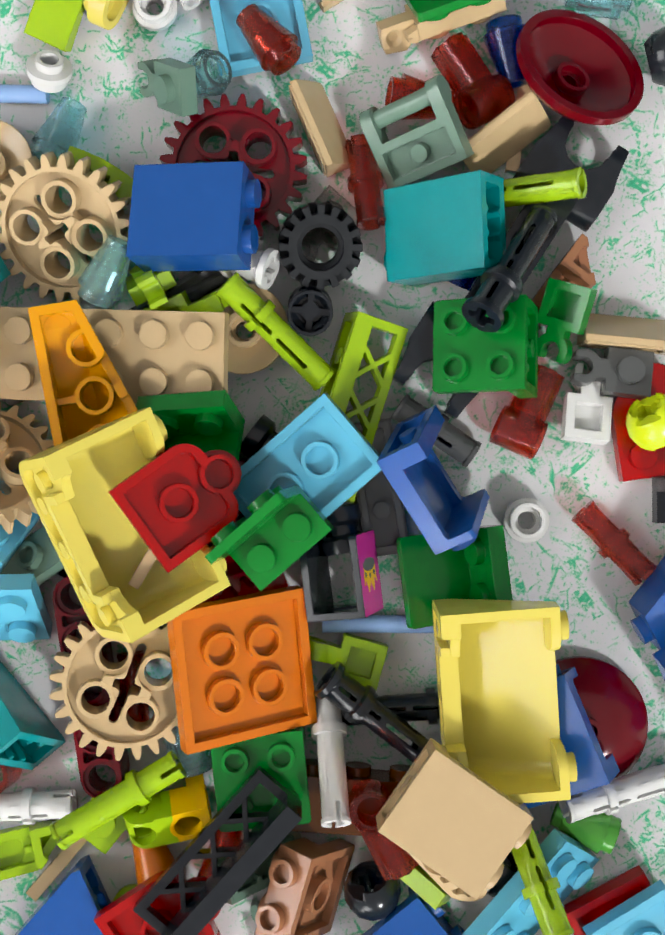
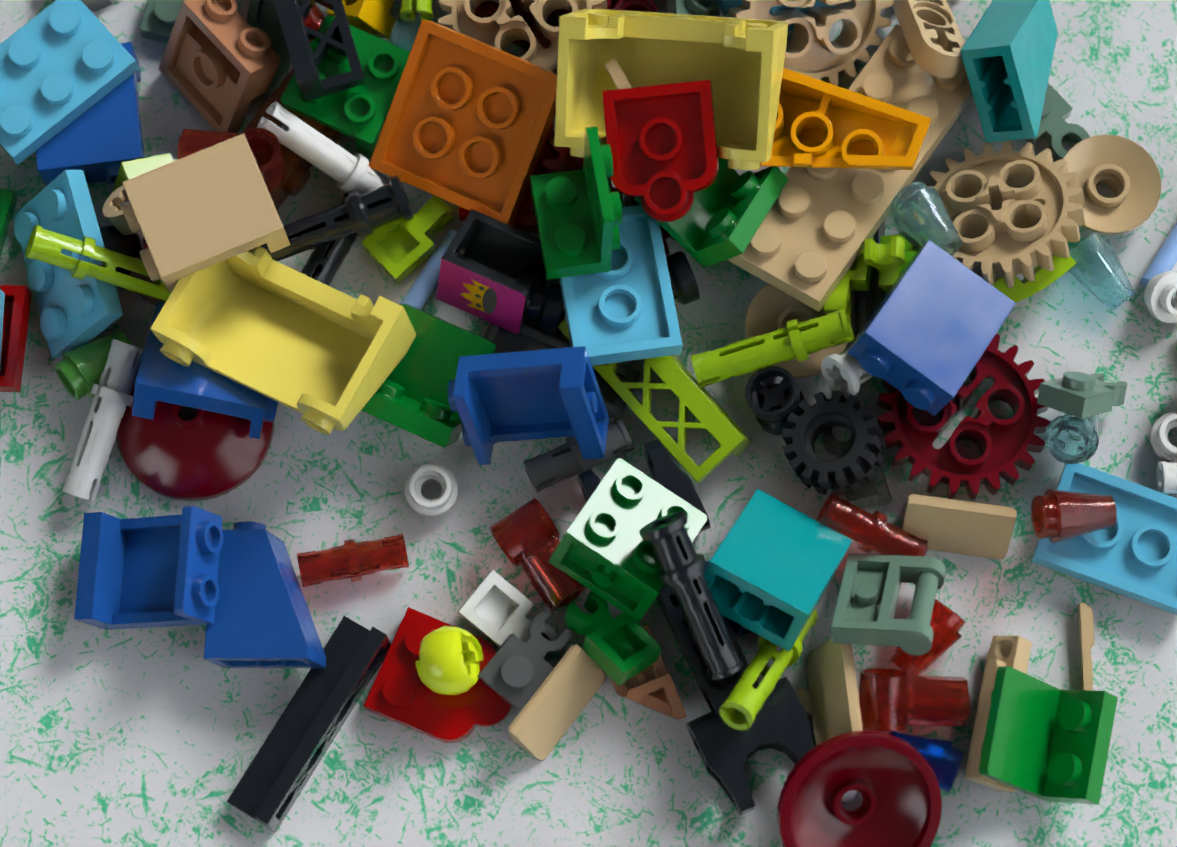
camera: 130 degrees right, 15 degrees down
(369, 904) = (167, 117): black piece -> none

